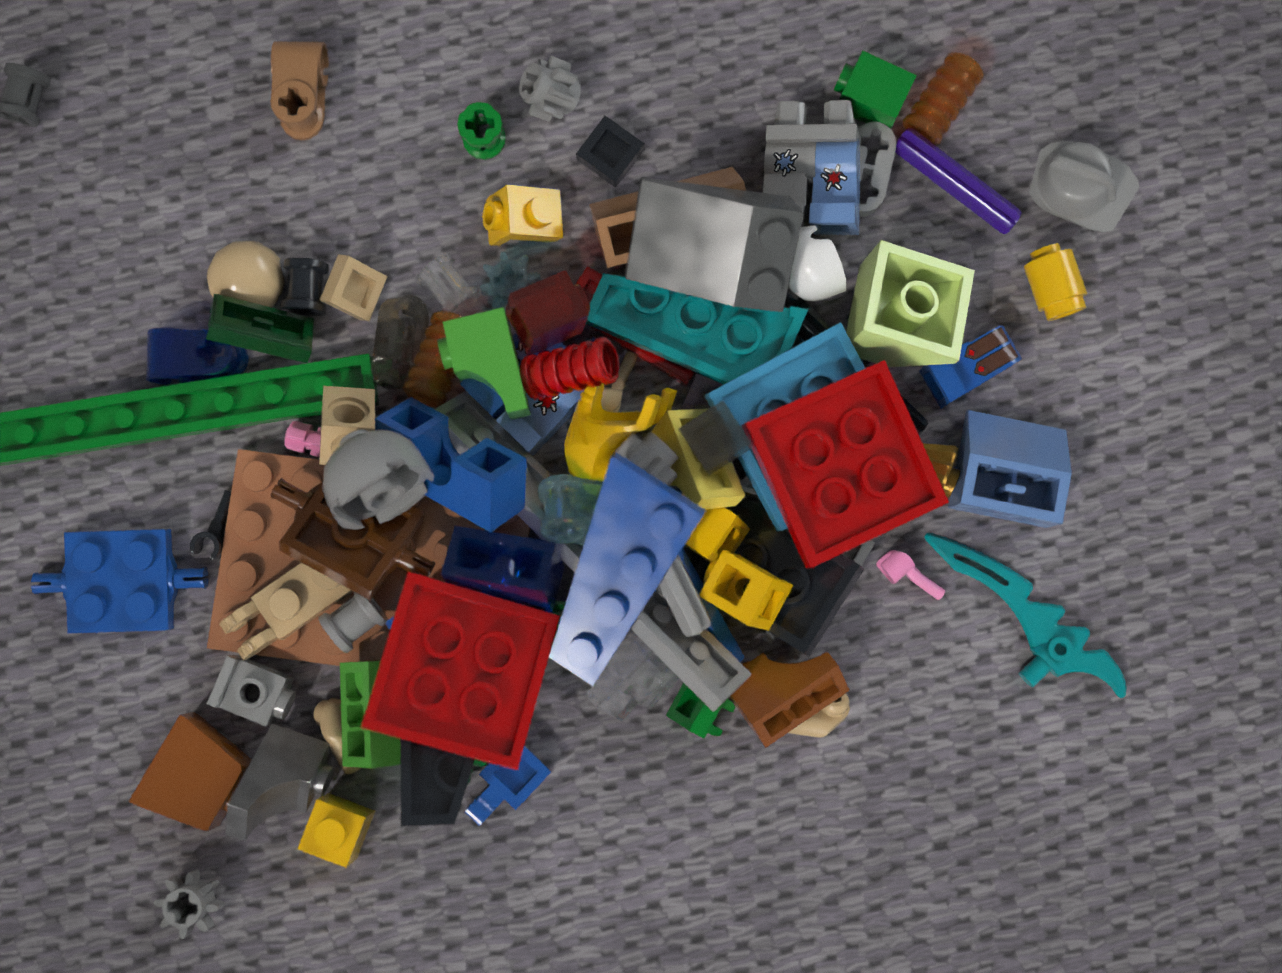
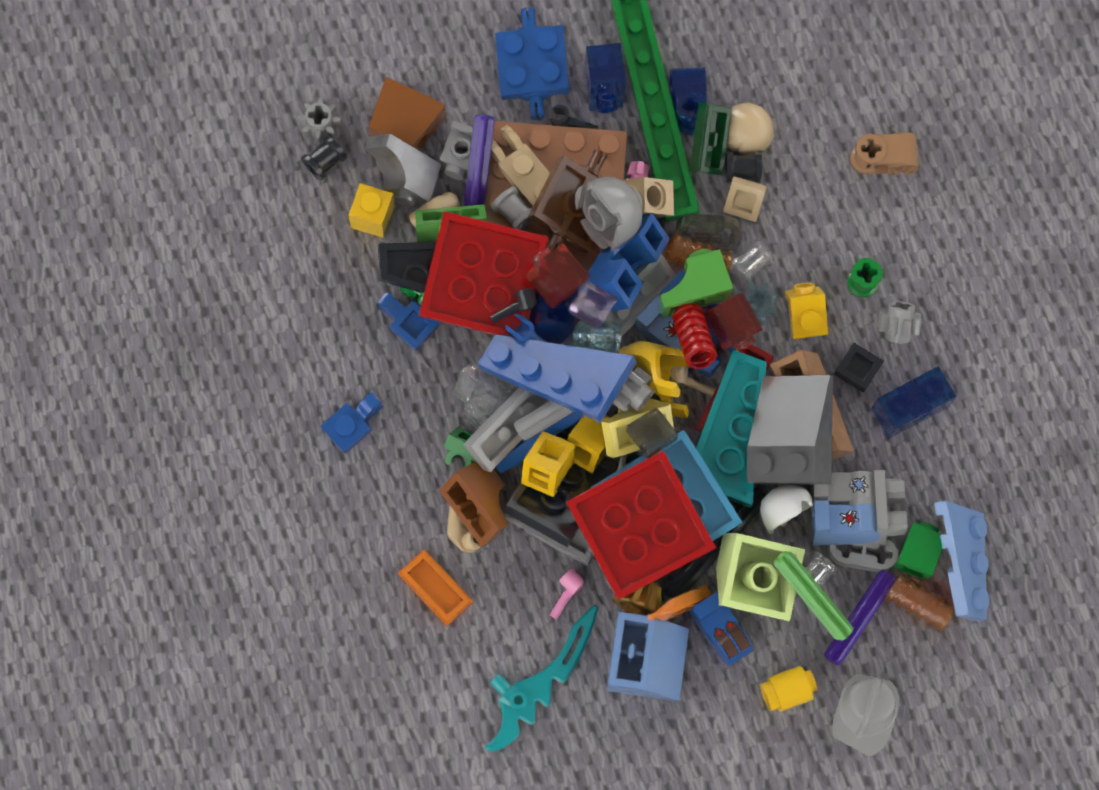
camera: 85 degrees right, 10 degrees down
(154, 474) = (604, 77): none -> clear blue brick
(247, 897) = (324, 157): none -> black bush
(272, 667) = (479, 160): none -> dark purple axle
(474, 561) = (556, 274): none -> clear red brick
(506, 609) = (526, 301): none -> black hand
(522, 511) = (592, 305): none -> clear purple plate
(551, 612) = (524, 330): none -> blue hand
(657, 870) = (348, 425): none -> blue plate
(667, 79) = (913, 402): none -> clear blue brick
(876, 30) = (966, 546): none -> medium blue wing
(896, 756) = (435, 587): none -> orange tile
(900, 230) = (823, 566): none -> clear bush
(943, 235) = (813, 595): none -> bright green axle
(944, 416) = (681, 604): none -> orange piece

